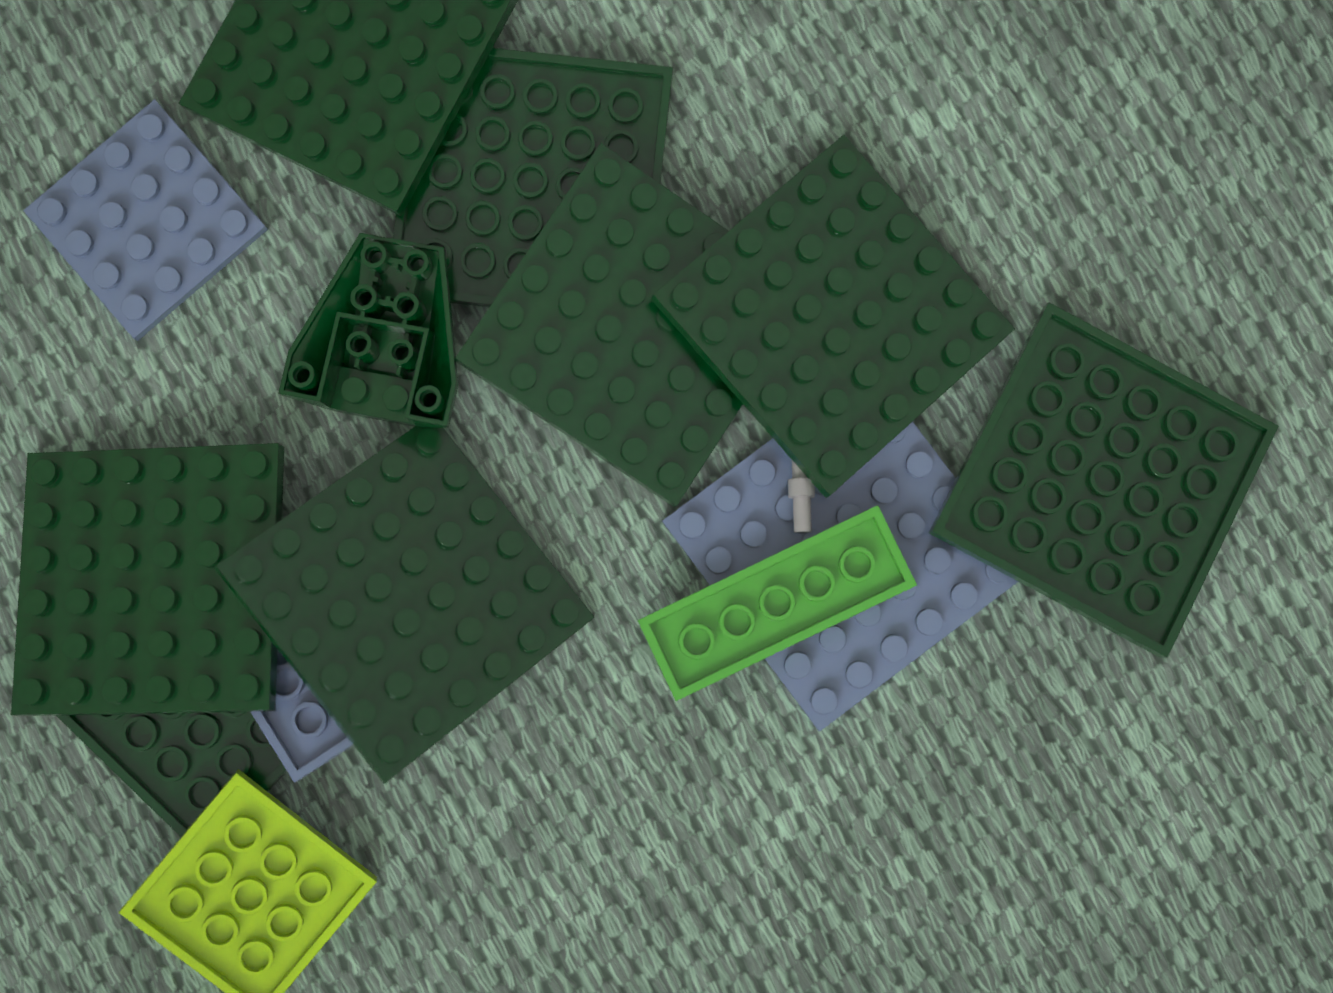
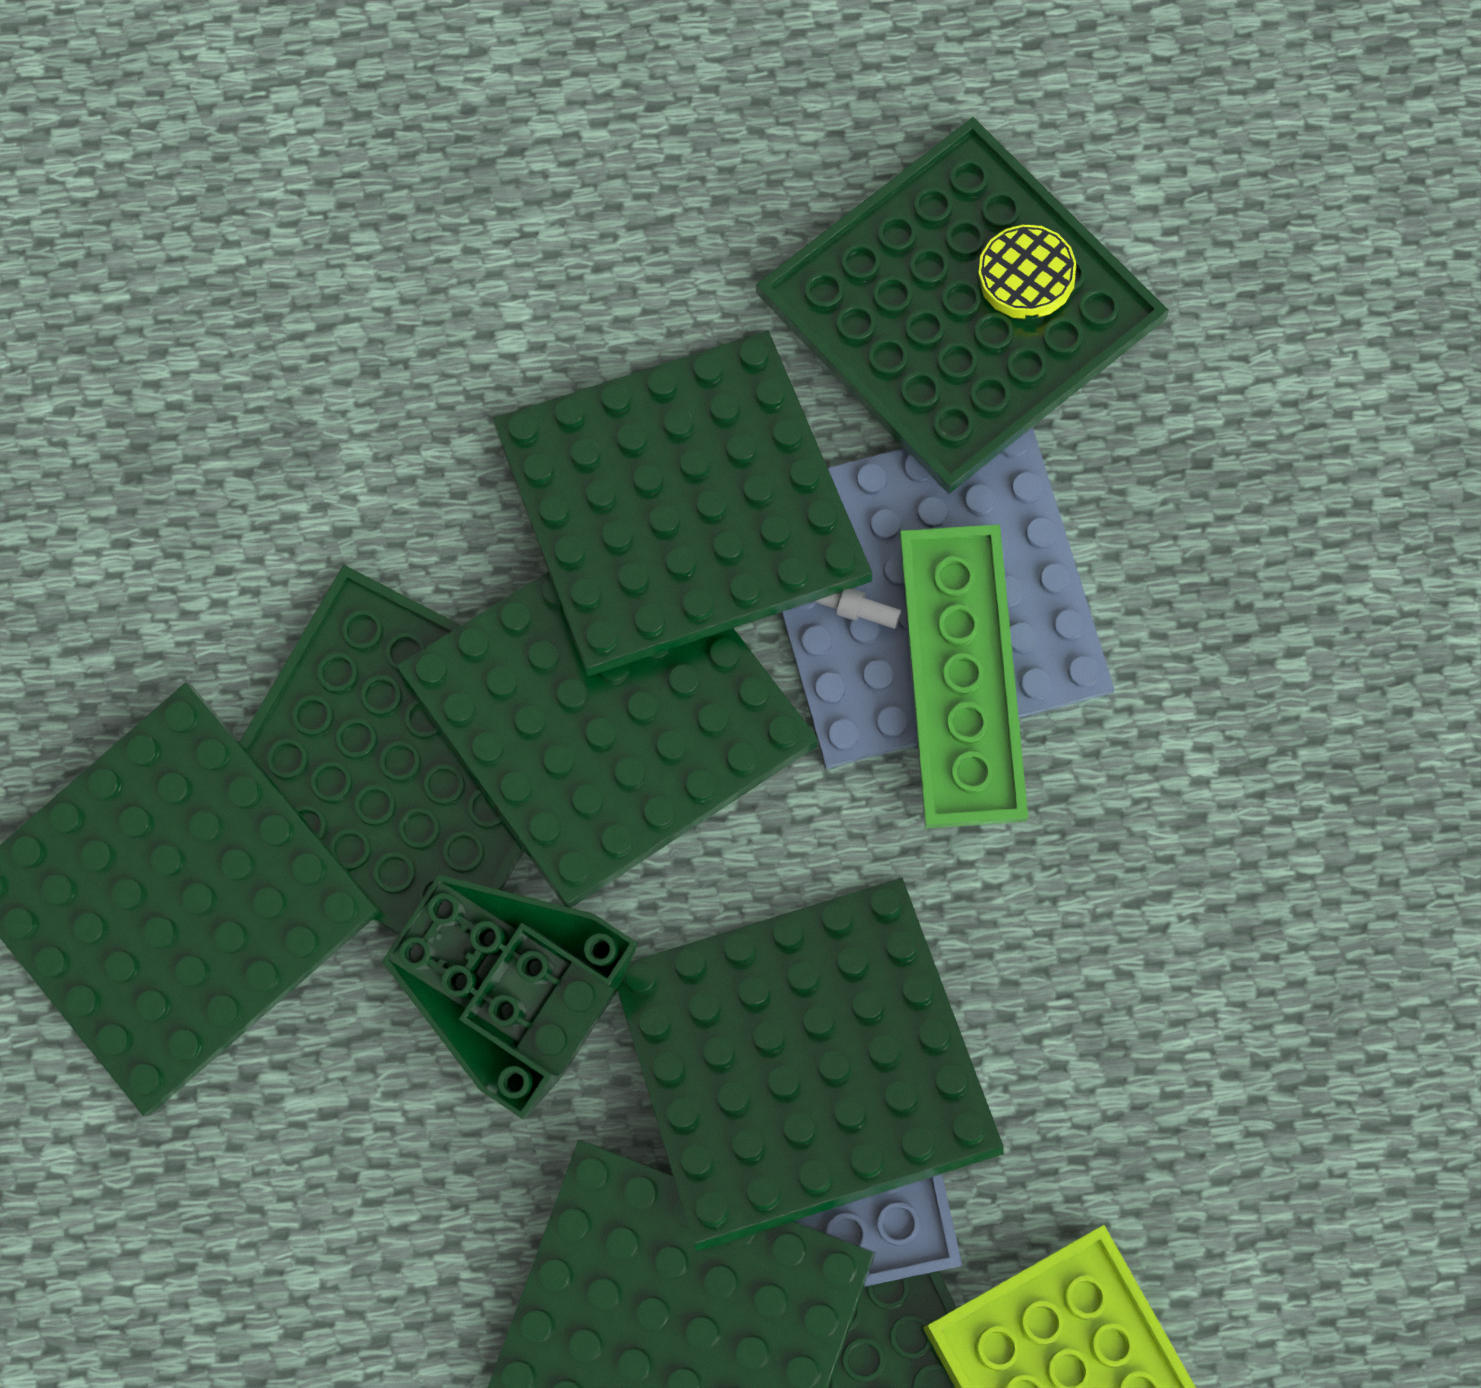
camera: 70 degrees left, 10 degrees down
(145, 220) = (257, 1206): sand blue plate -> none
(1152, 524) = (1027, 271): none -> tile

